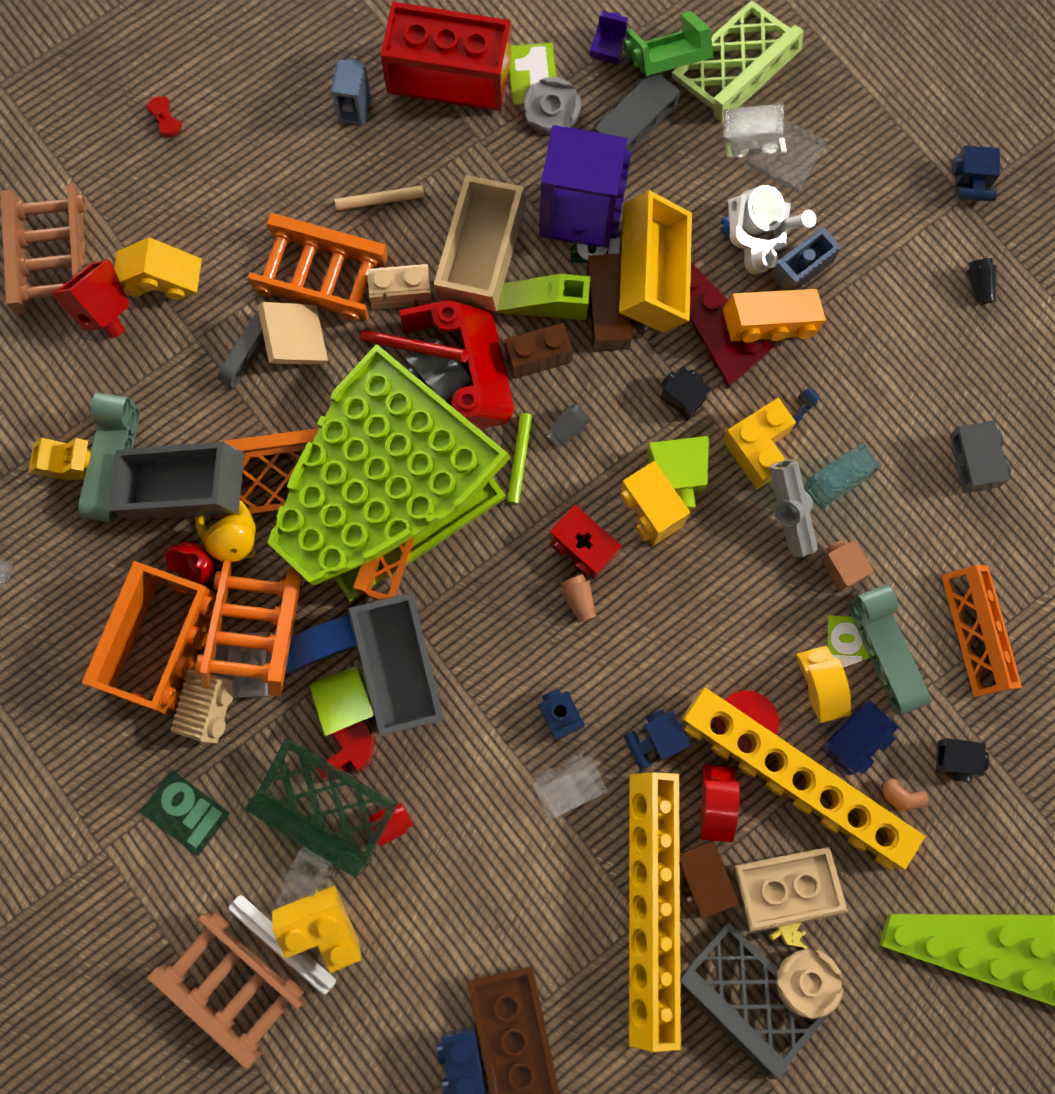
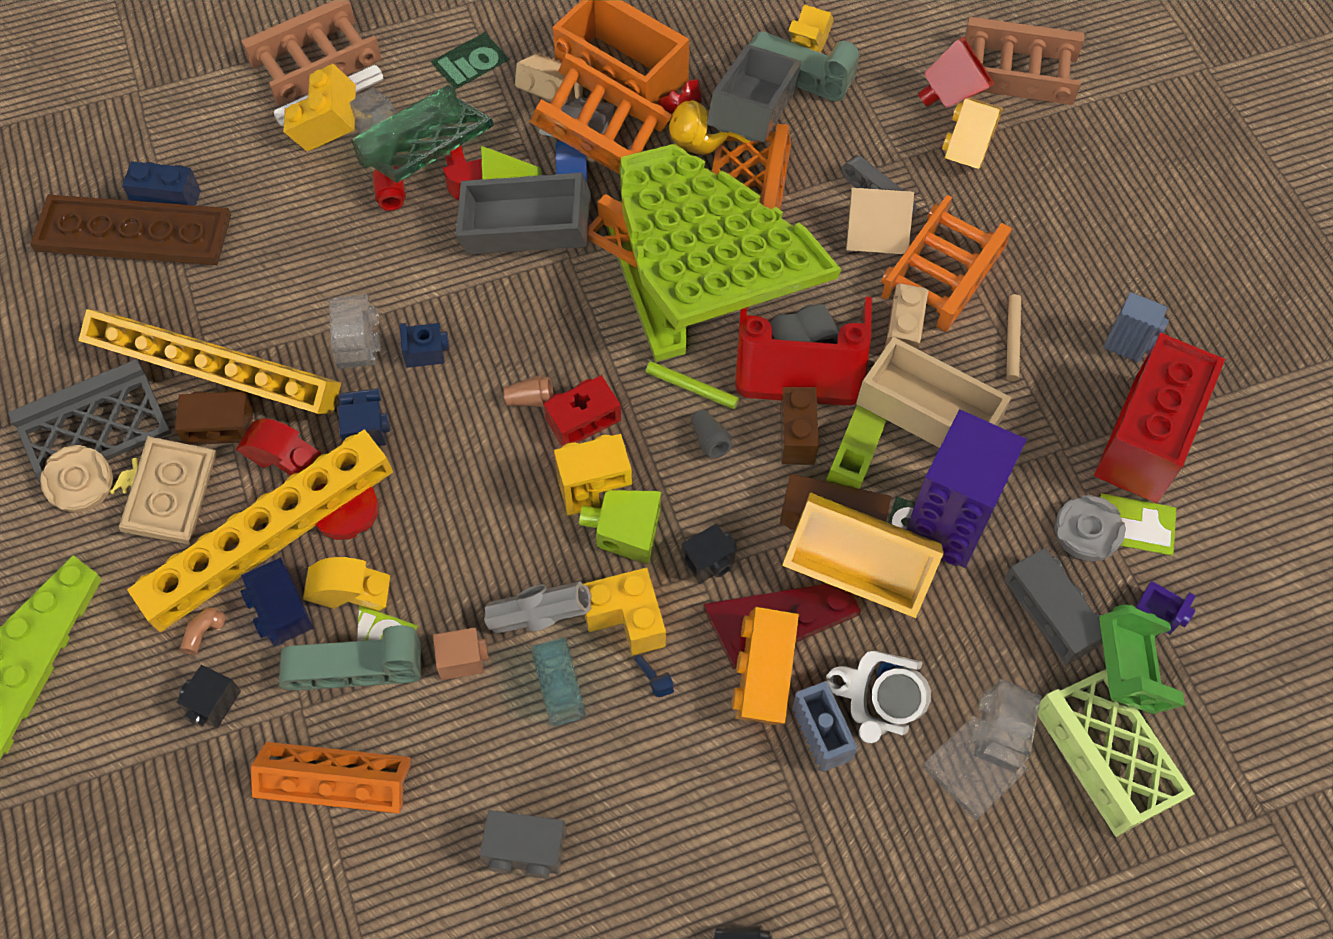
camera: 110 degrees right, 15 degrees down
(159, 109) = (1154, 178): red piece -> none
(414, 345) = (834, 312): red bar -> none

